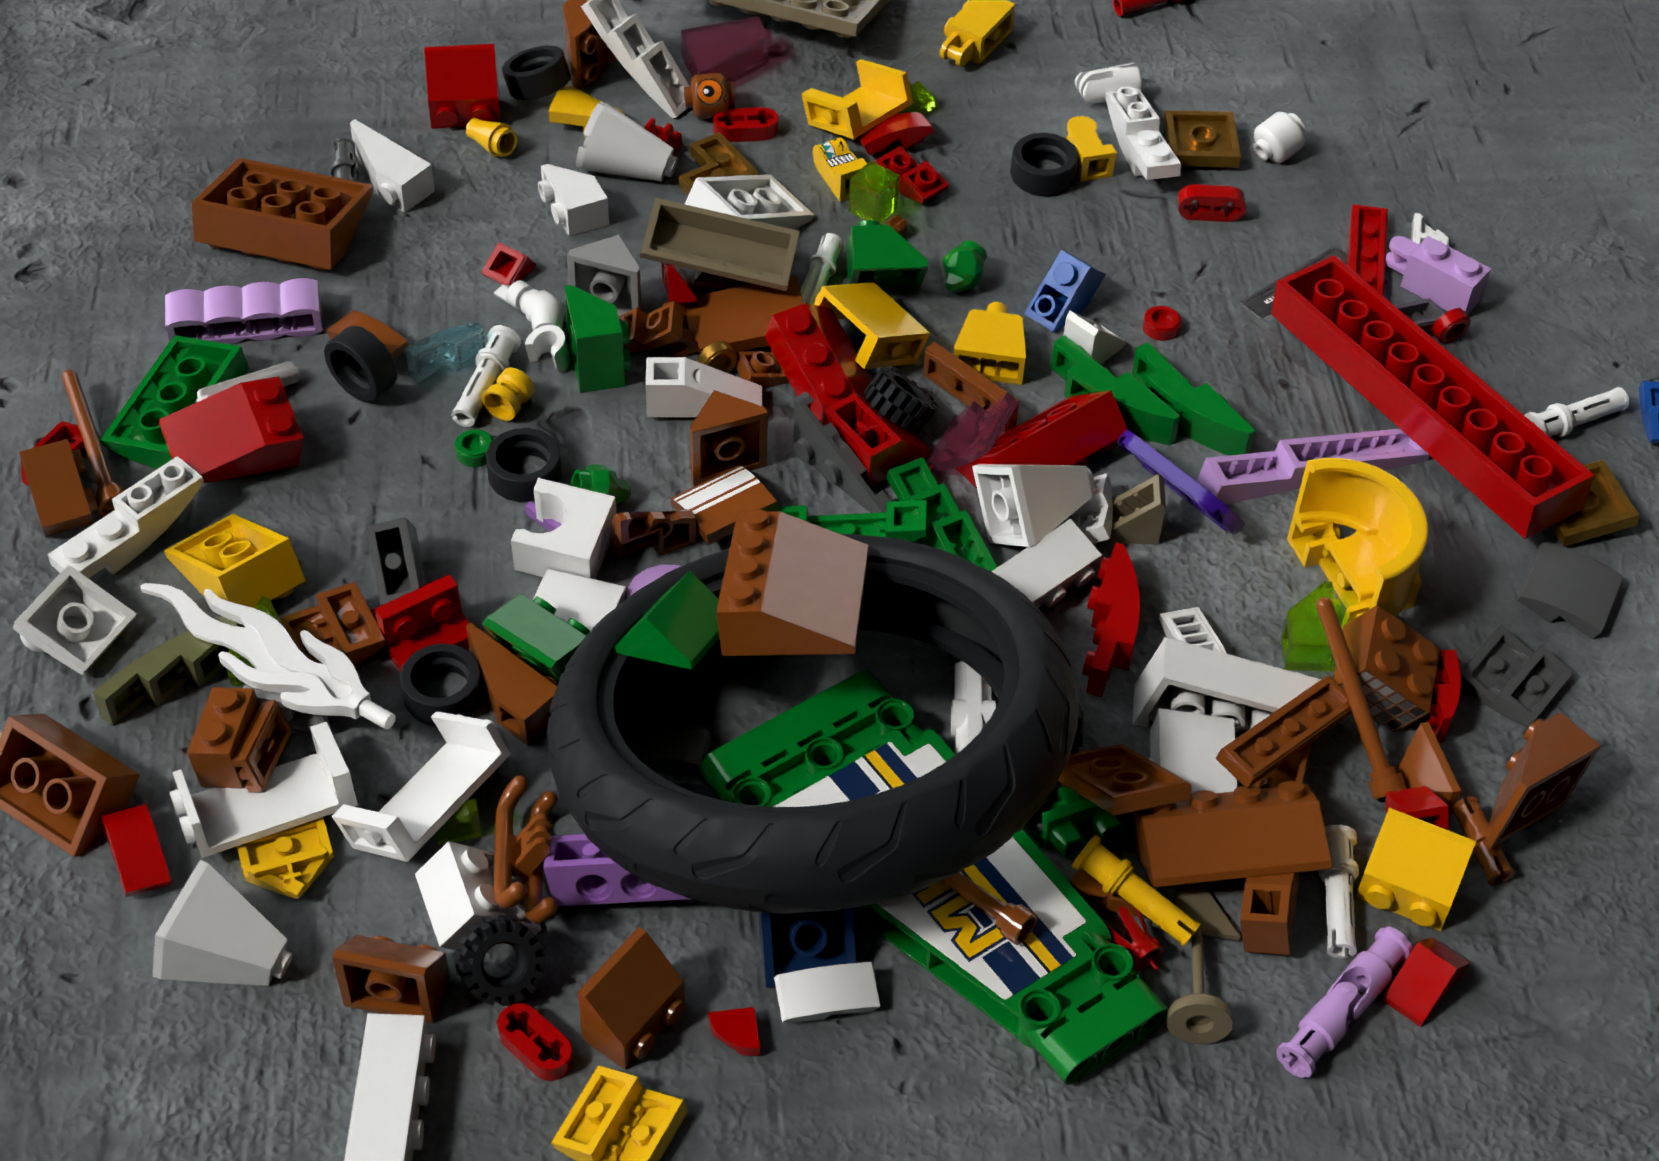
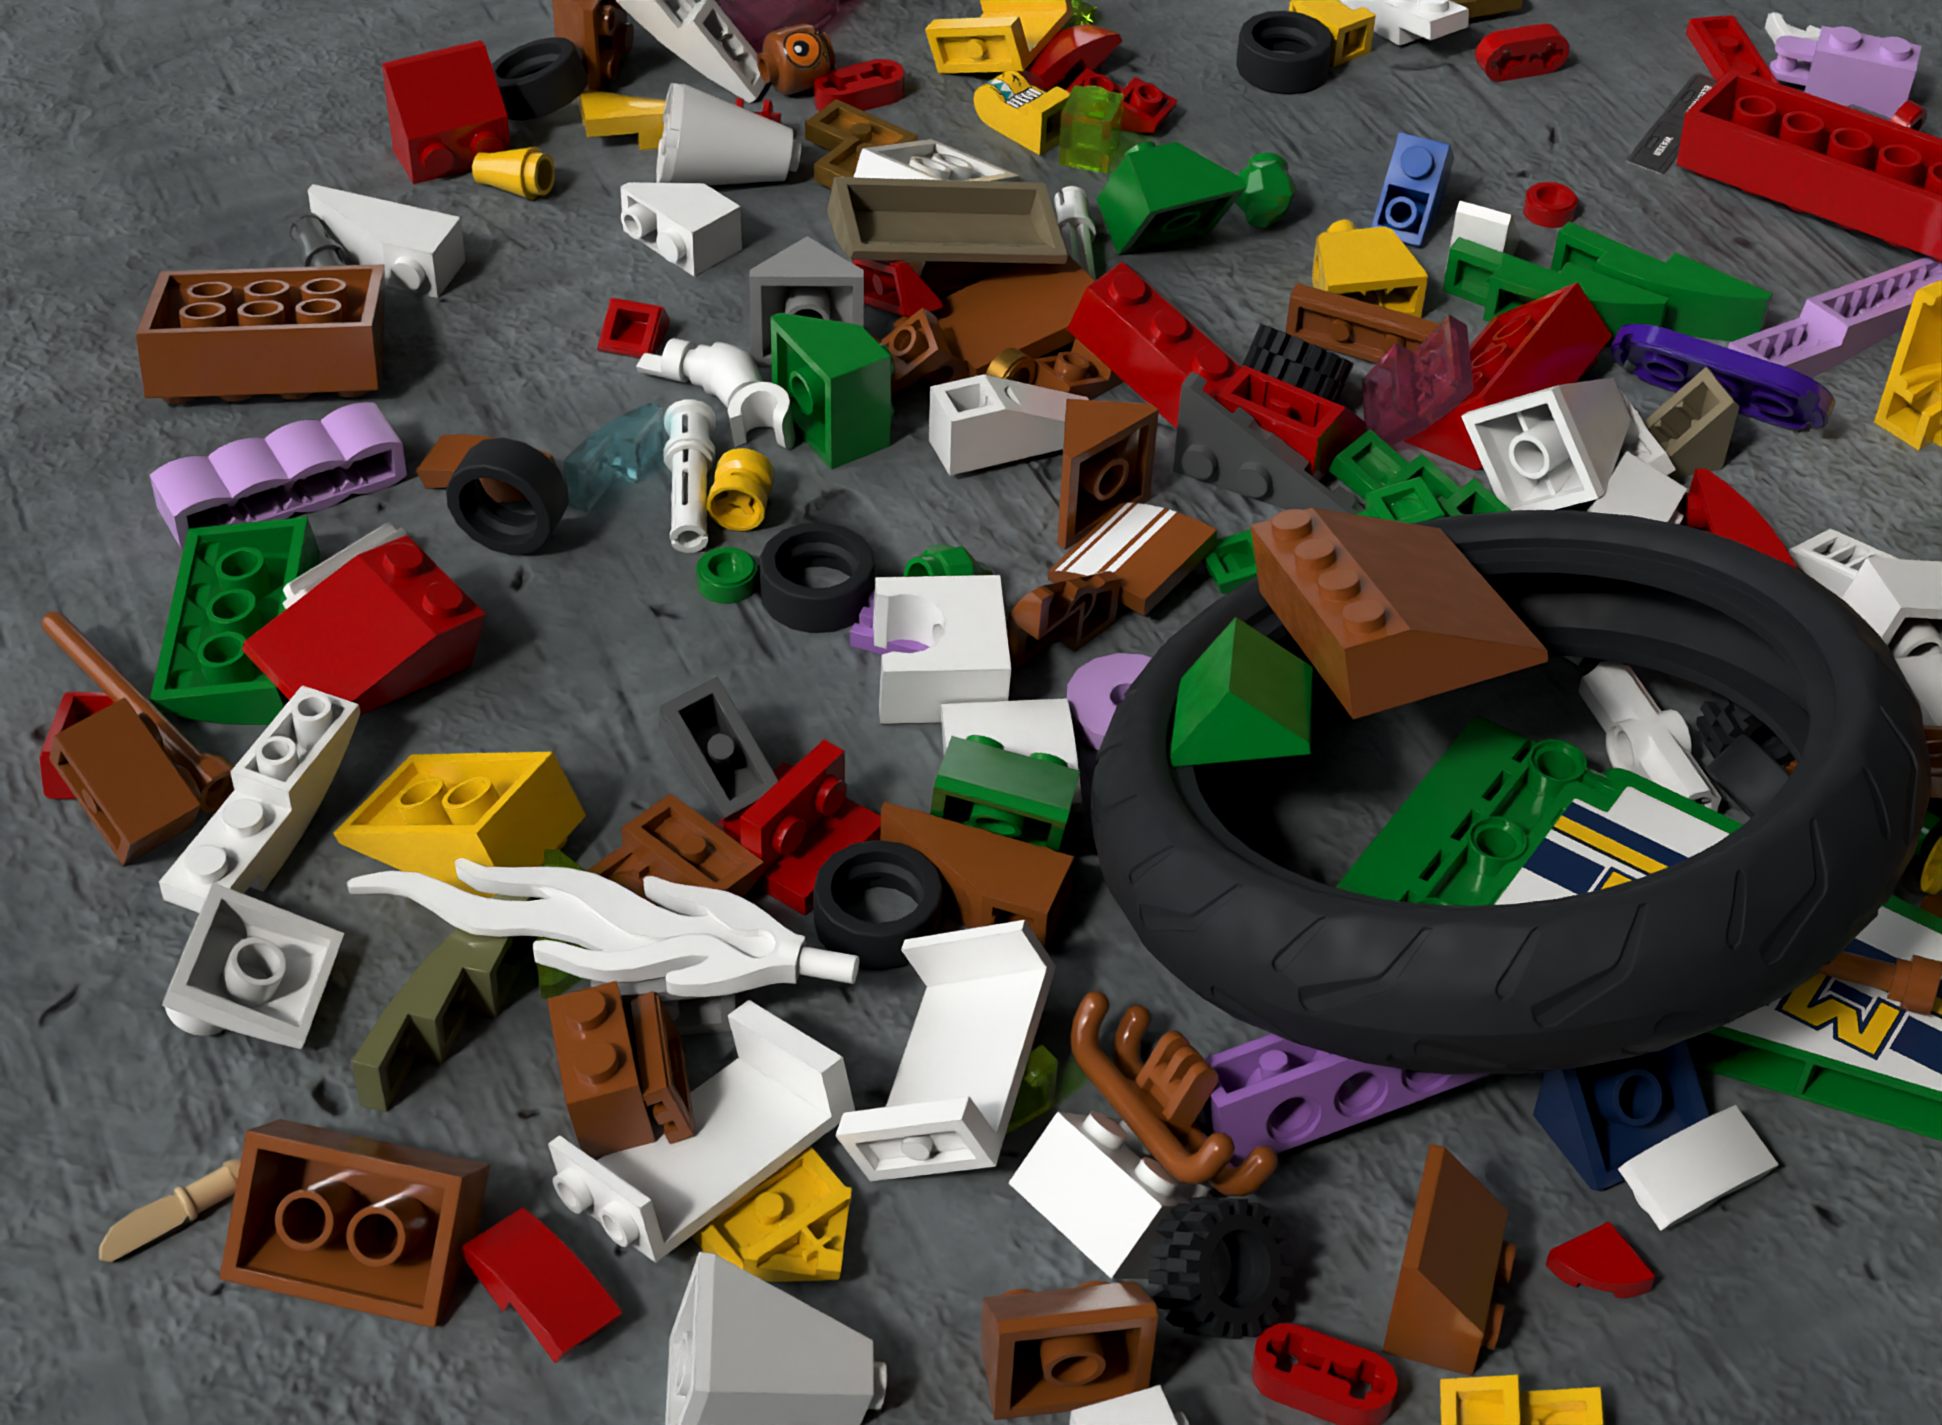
camera: 20 degrees left, 5 degrees down
(890, 331) = (1243, 289): yellow panel -> none

